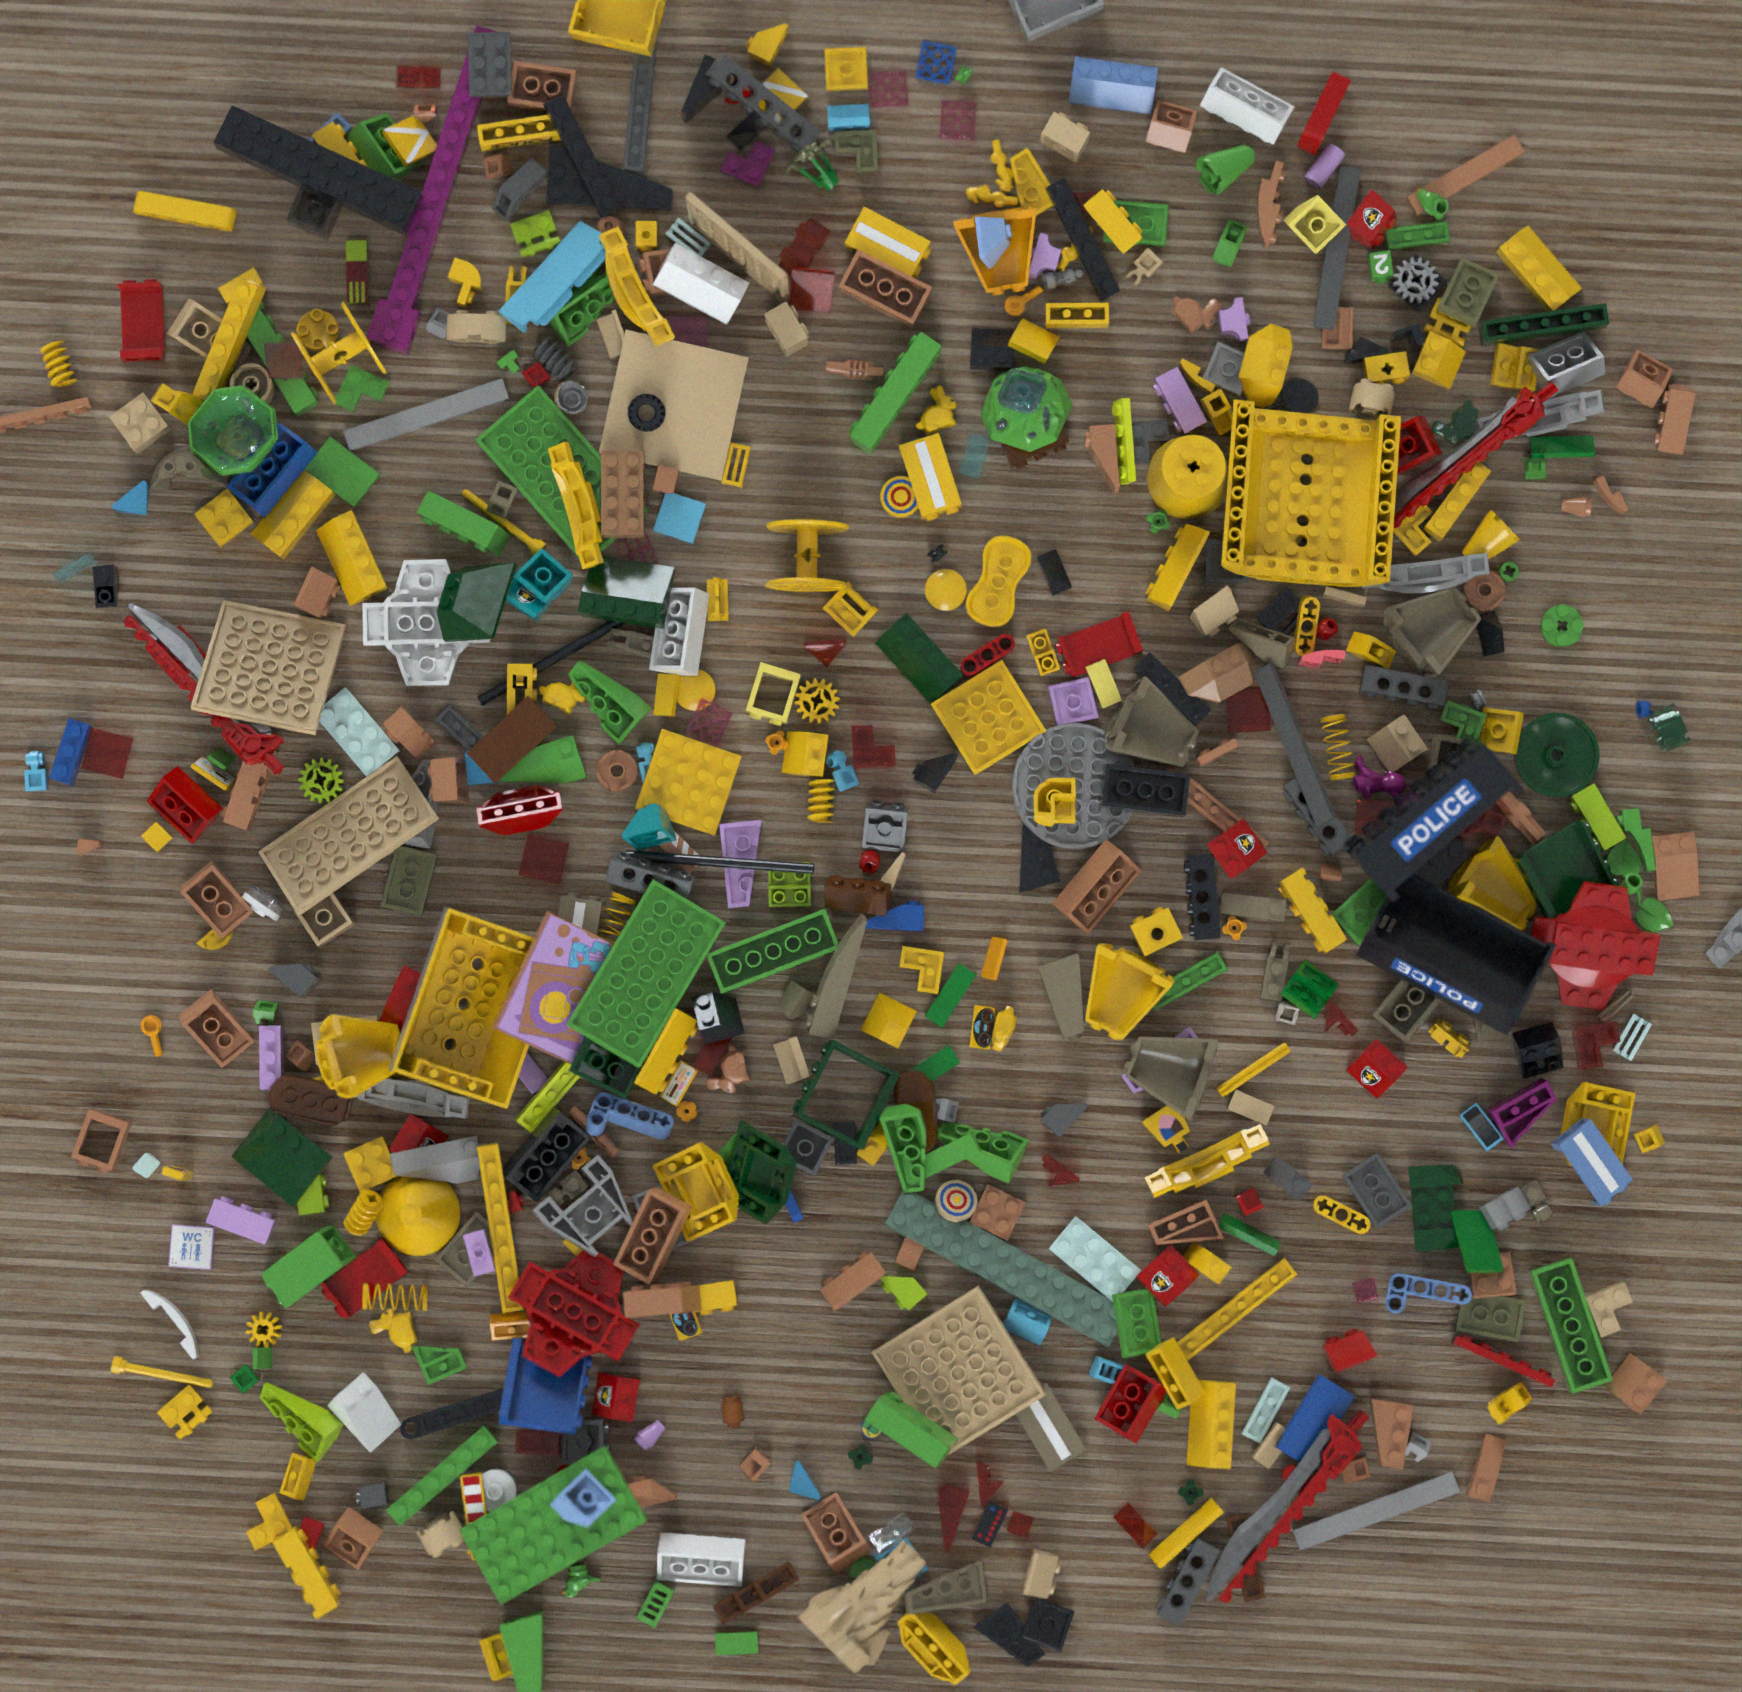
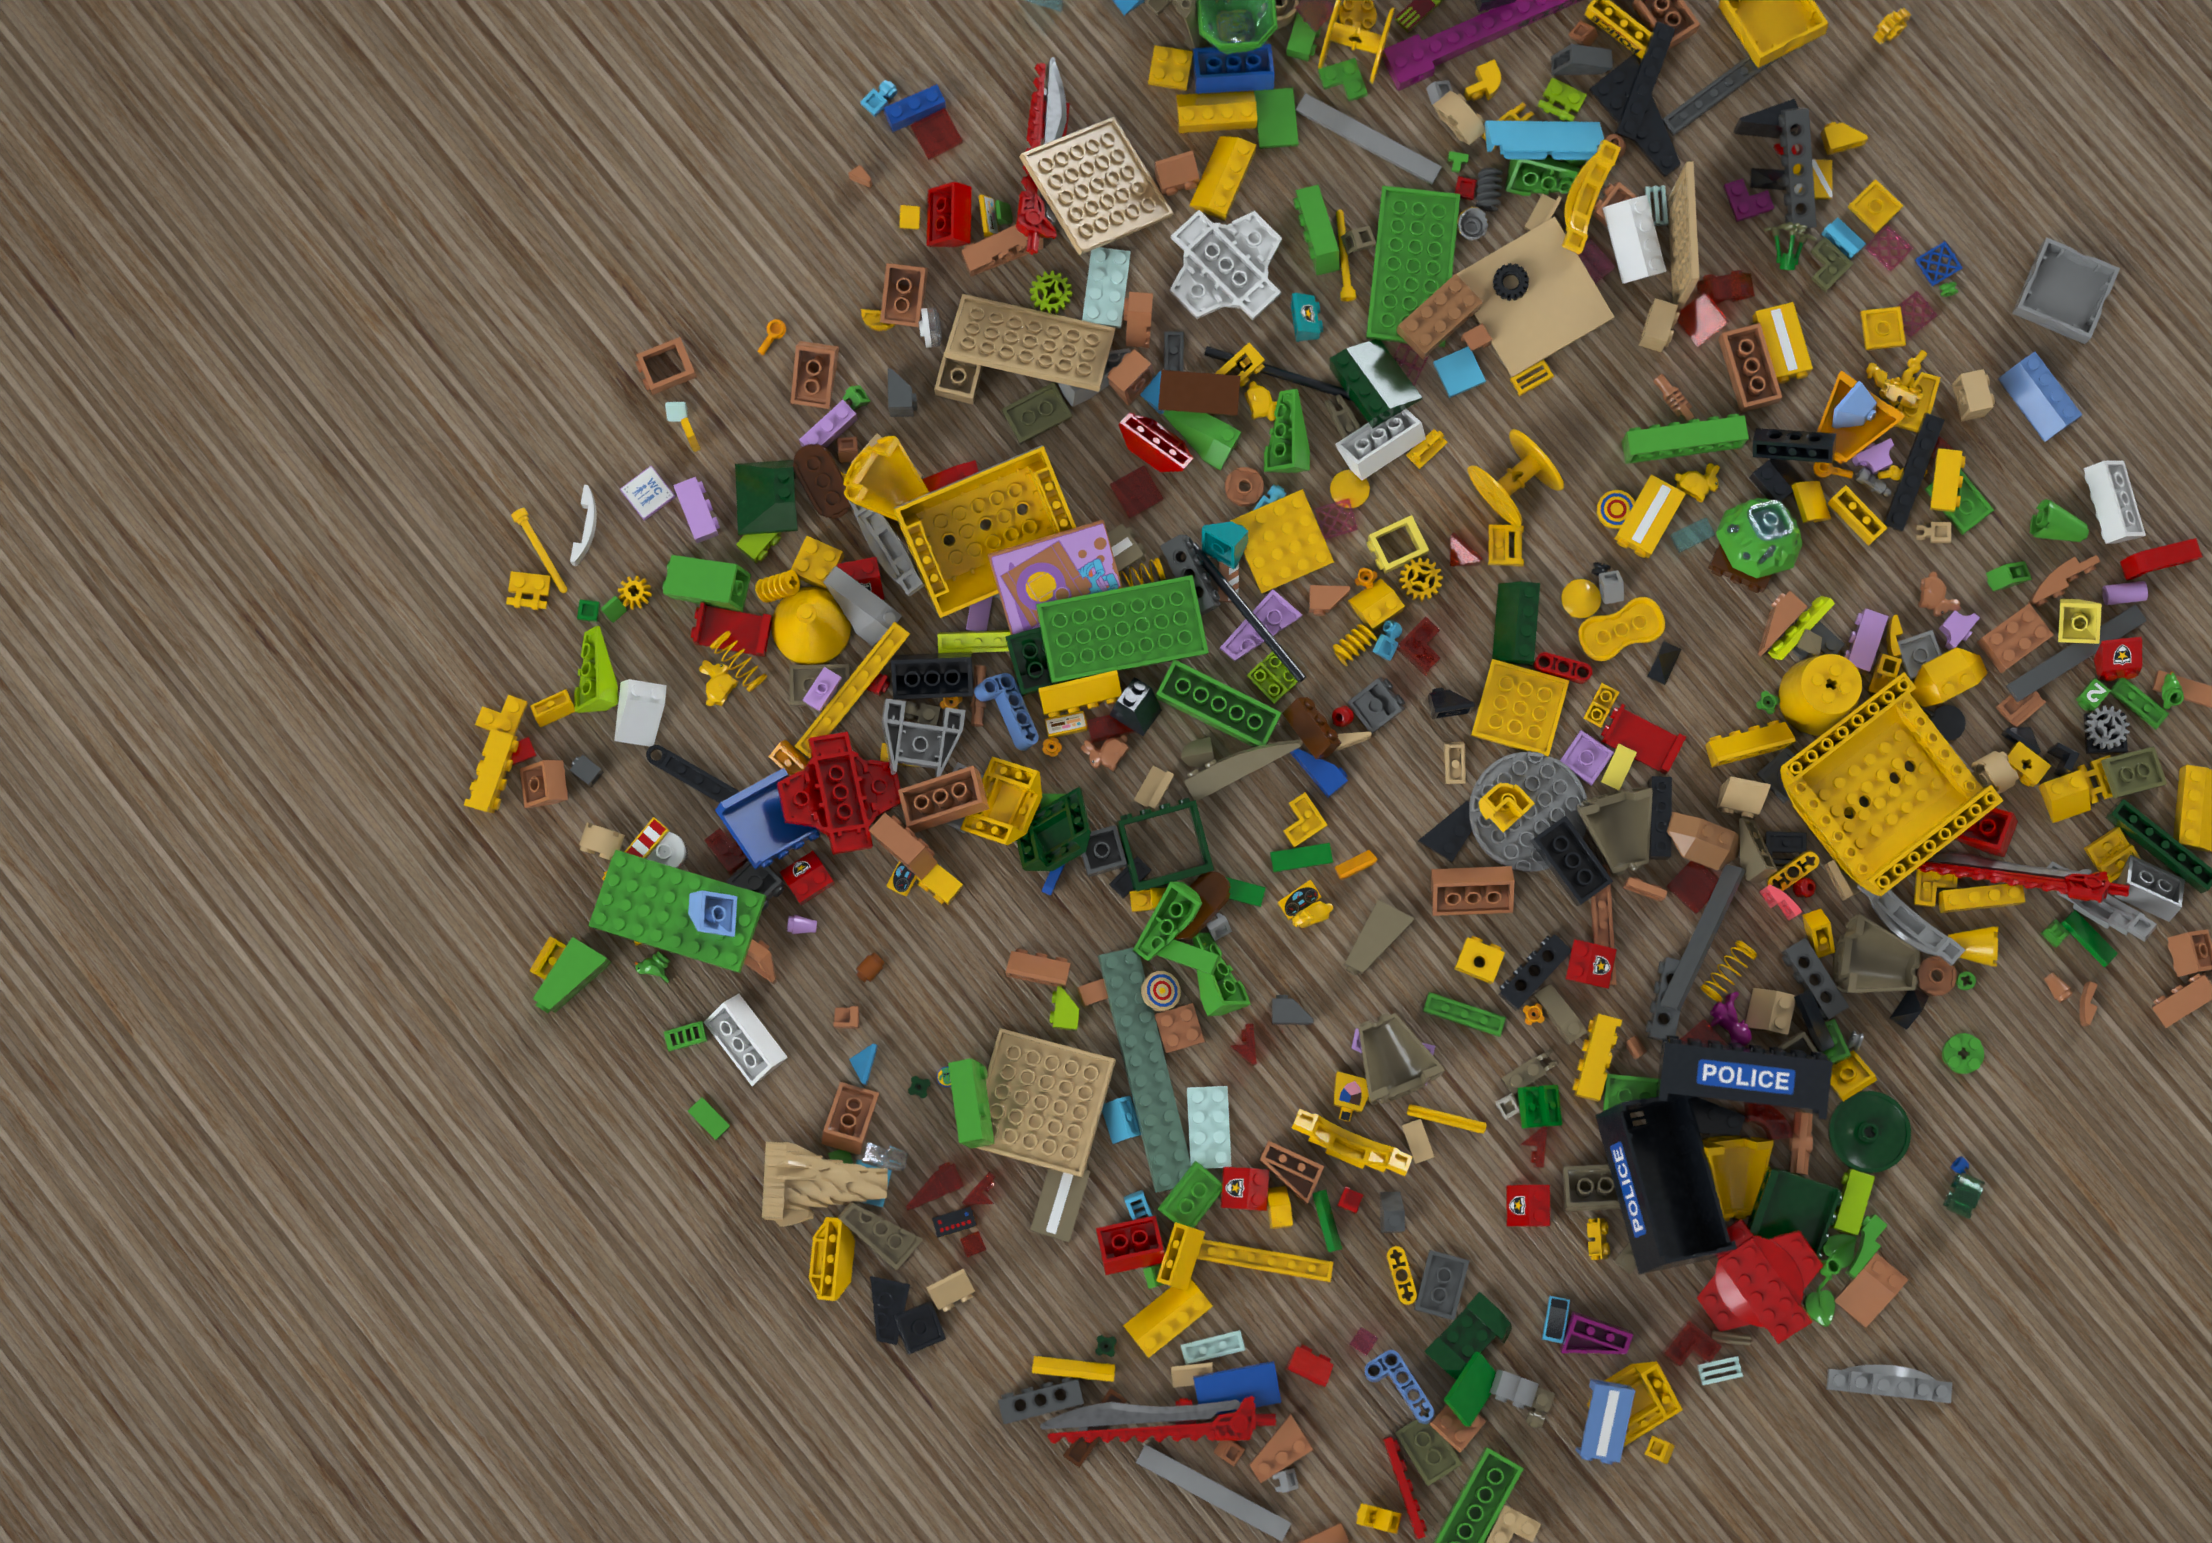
camera: 45 degrees right, 5 degrees down
(106, 586) = (1051, 29): black slope -> none
(439, 1362) = (720, 733): bright green wing -> none
(442, 1475) = (643, 806): bright green brick -> none
(474, 601) = (1270, 281): dark green slope -> none
(544, 577) = (1332, 315): teal slope -> none
(579, 505) = (1405, 292): yellow piece -> none
(646, 236) = (1632, 174): yellow brick -> none
(666, 695) = (1328, 472): yellow tile -> none
(755, 1592) = (756, 1099): reddish brown slope -> none
(764, 789) = (1325, 598): none -> nougat slope
(888, 1020) = (1243, 830): yellow slope -> none
(947, 155) = (1883, 328): none -> yellow plate
(959, 559) = (1611, 587): none -> light grey brick
(978, 313) = (1794, 445): none -> black brick
(984, 807) = (1454, 762): none -> tan slope
(1005, 191) = (1909, 395): none -> yellow hinge
(1123, 990) = (1416, 973): yellow cone -> none
(1135, 1525) = (1046, 1327): clear red slope -> none
(1143, 446) = (1810, 642): none -> dark tan slope
(1171, 126) = (2049, 462): nougat slope -> none
(1282, 284) = (2015, 638): none -> nougat brick
(1436, 718) = (1814, 1021): none -> black tile
(1460, 426) = (2036, 852): clear green animal -> none
(1538, 1050) = (1648, 1310): black slope -> none

